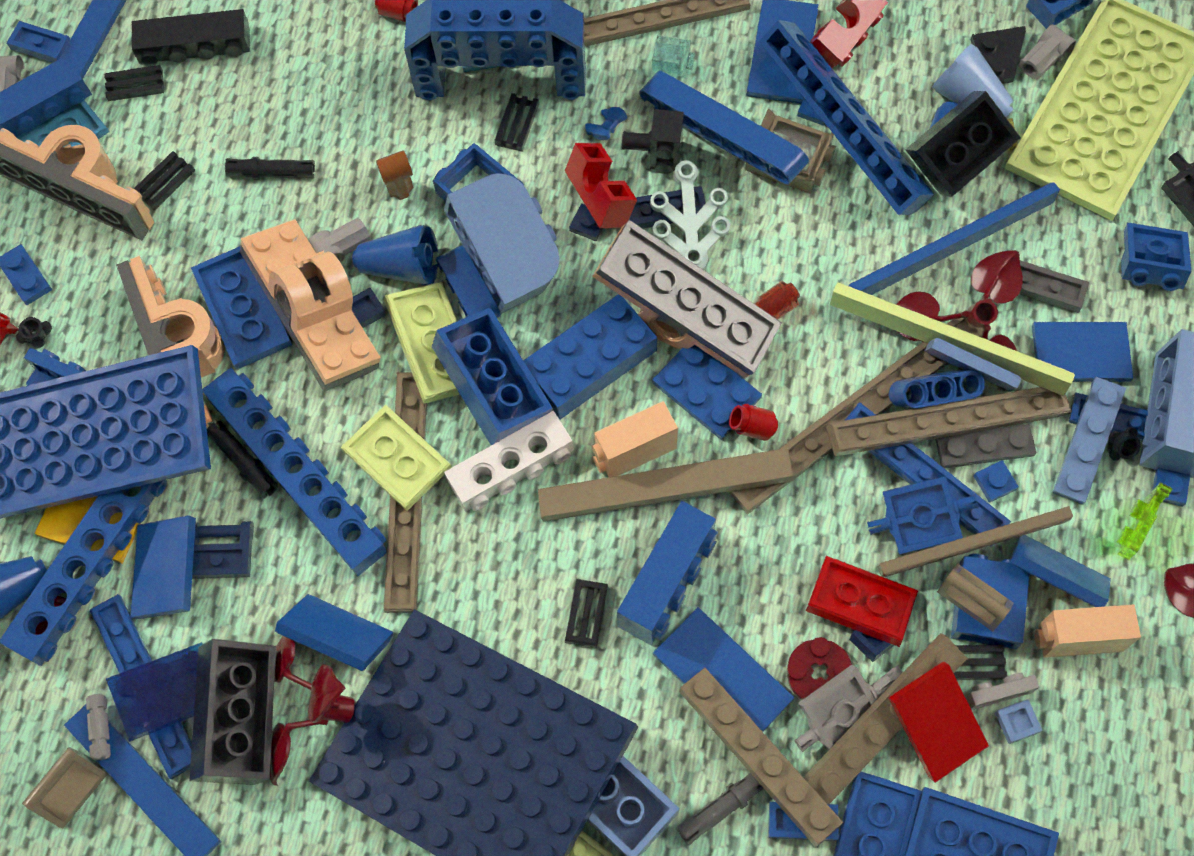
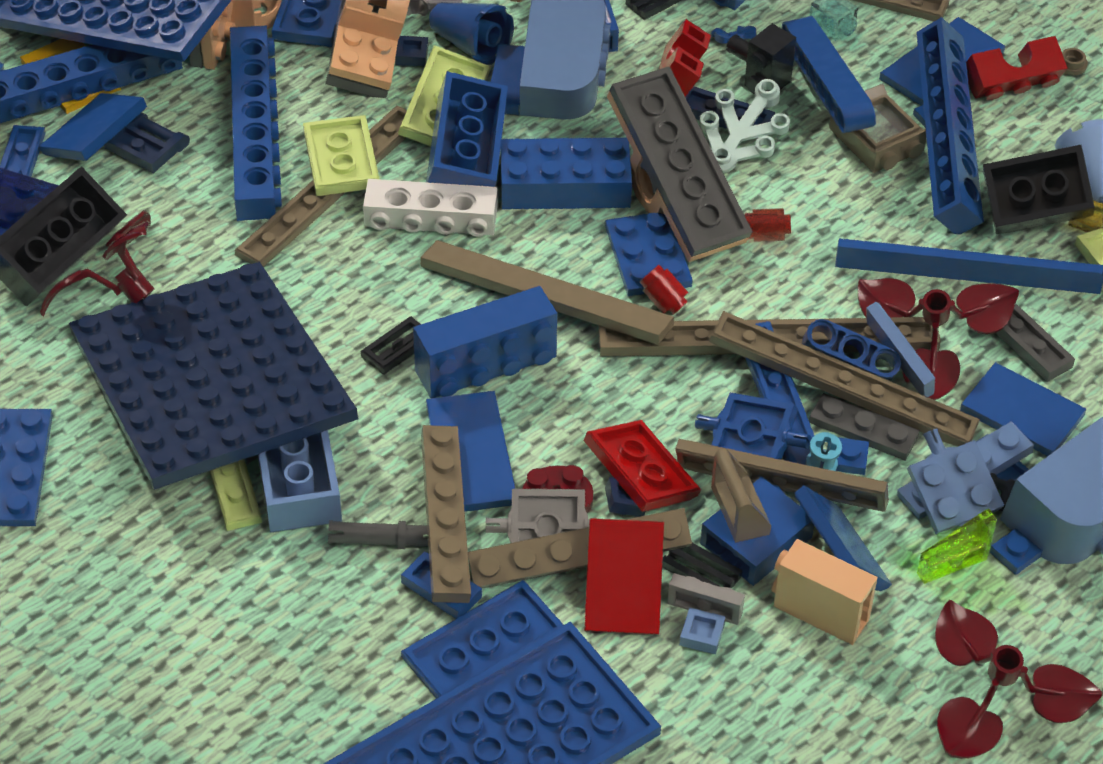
camera: 30 degrees right, 20 degrees down
(249, 468) = (220, 101): black pin -> none
(334, 632) = (181, 234): blue tile -> none
(635, 440) = (546, 240): light nougat brick -> none
(927, 329) = (868, 289): yellowish green tile -> none
(993, 494) = (829, 455): none -> medium azure bush
(1102, 466) = (953, 483): none -> medium blue plate

